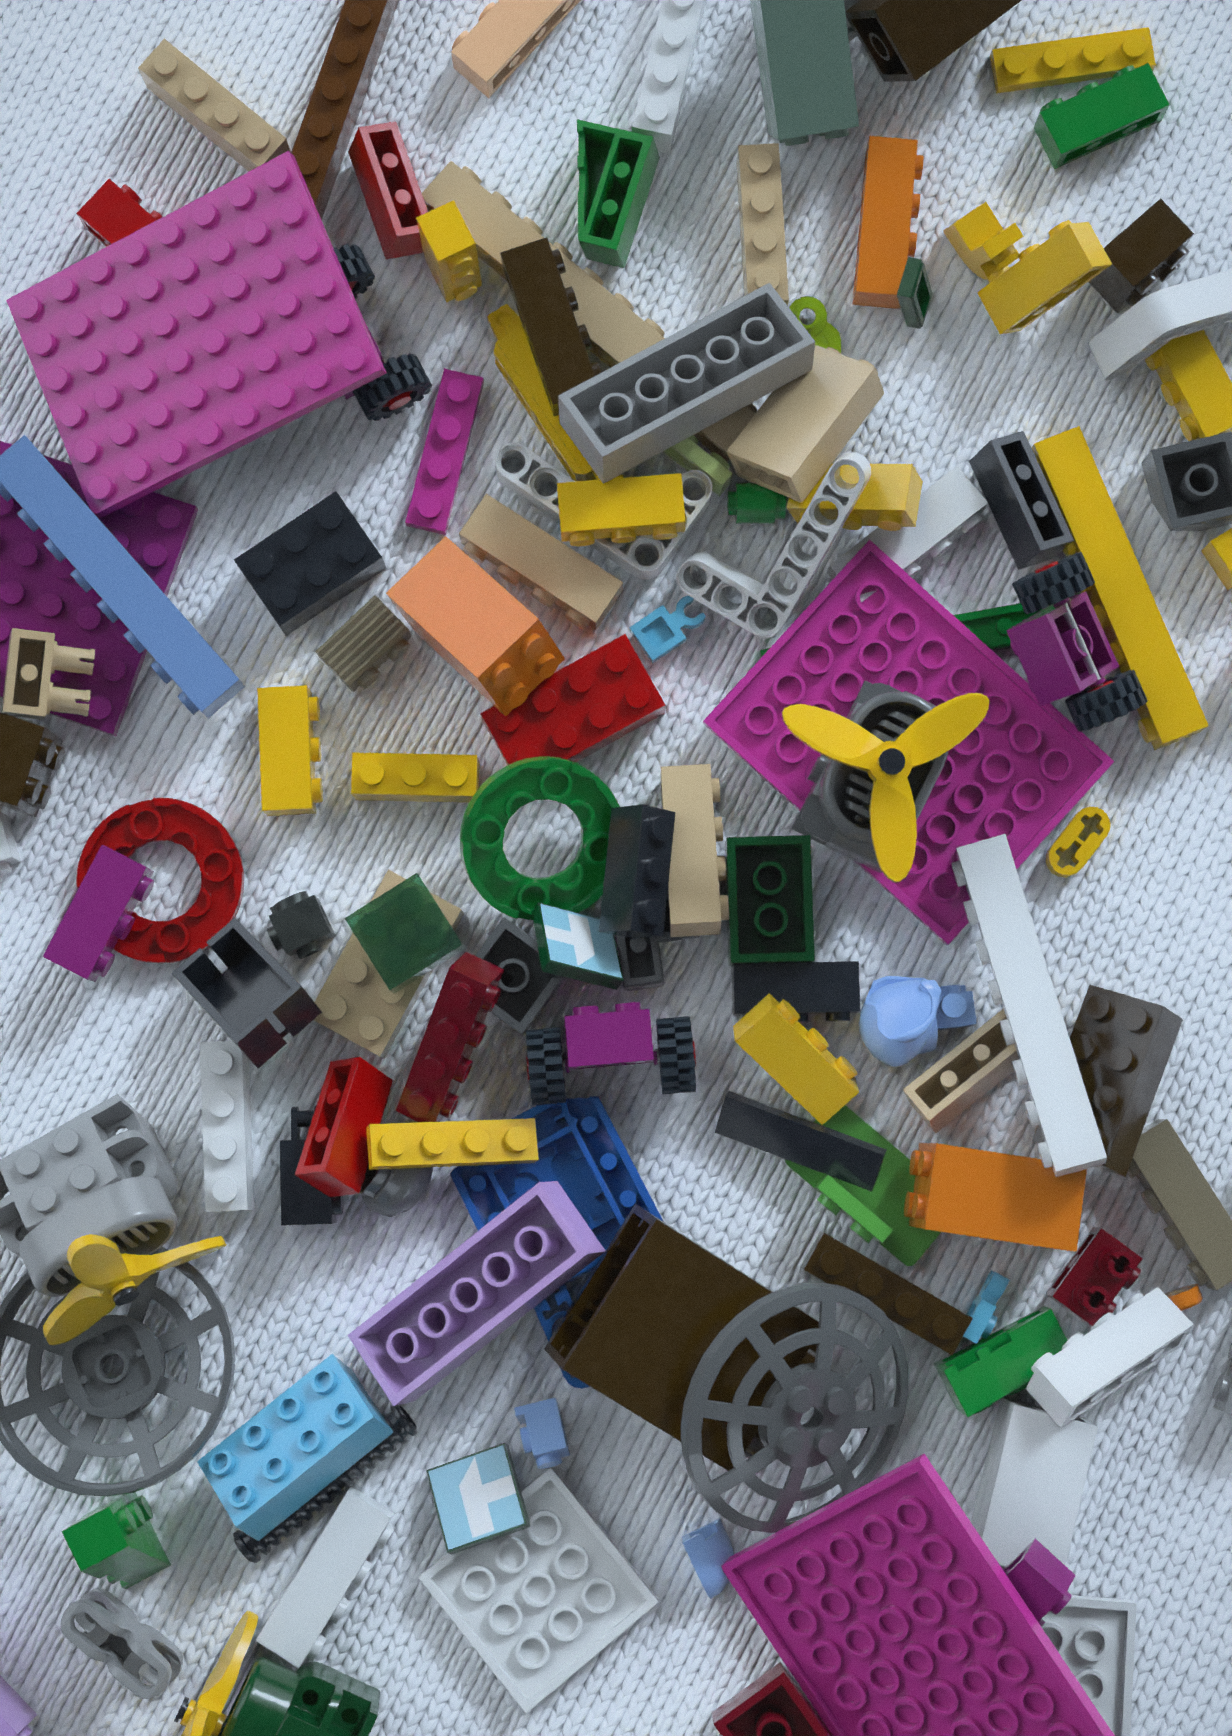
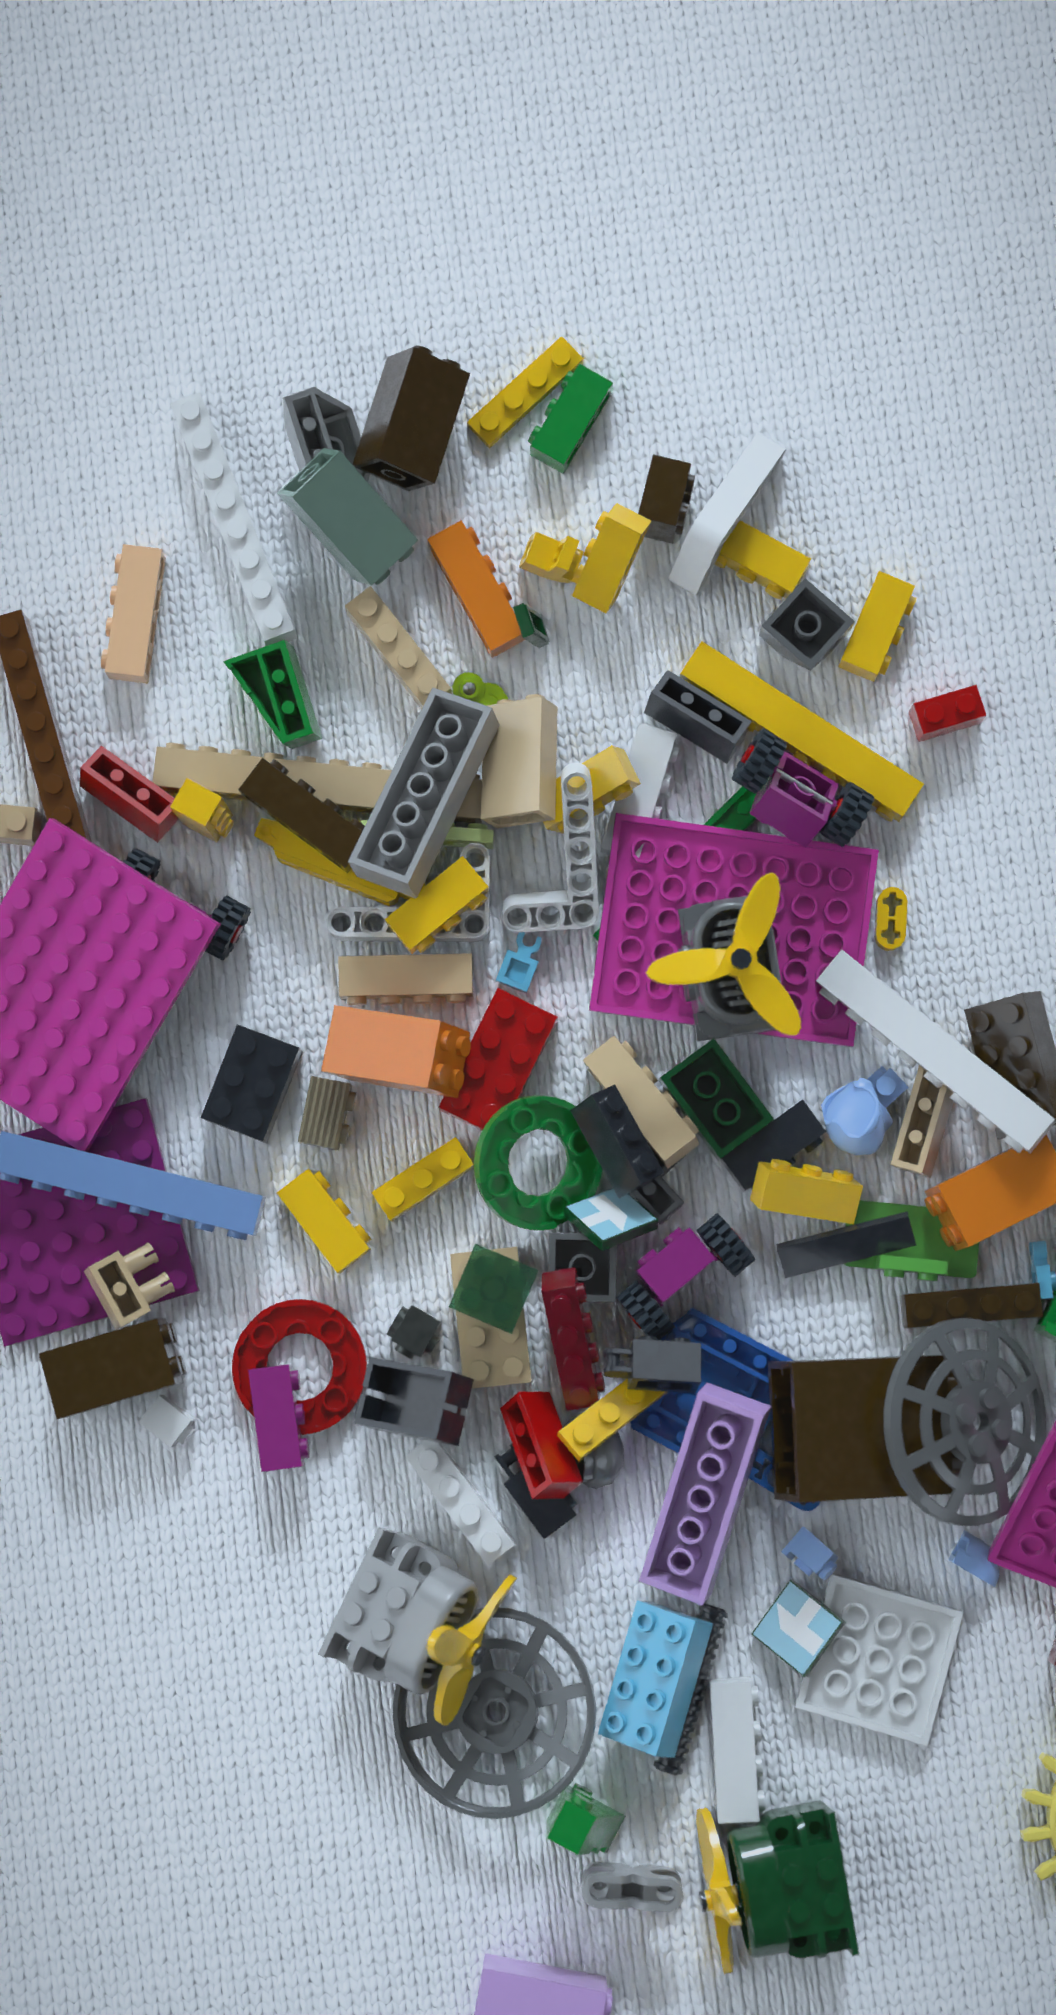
camera: 30 degrees left, 0 degrees up
(444, 452) = (287, 945): dark pink plate -> none
(518, 1126) = (657, 1364): none -> black brick
(755, 504) = (522, 839): green brick -> none

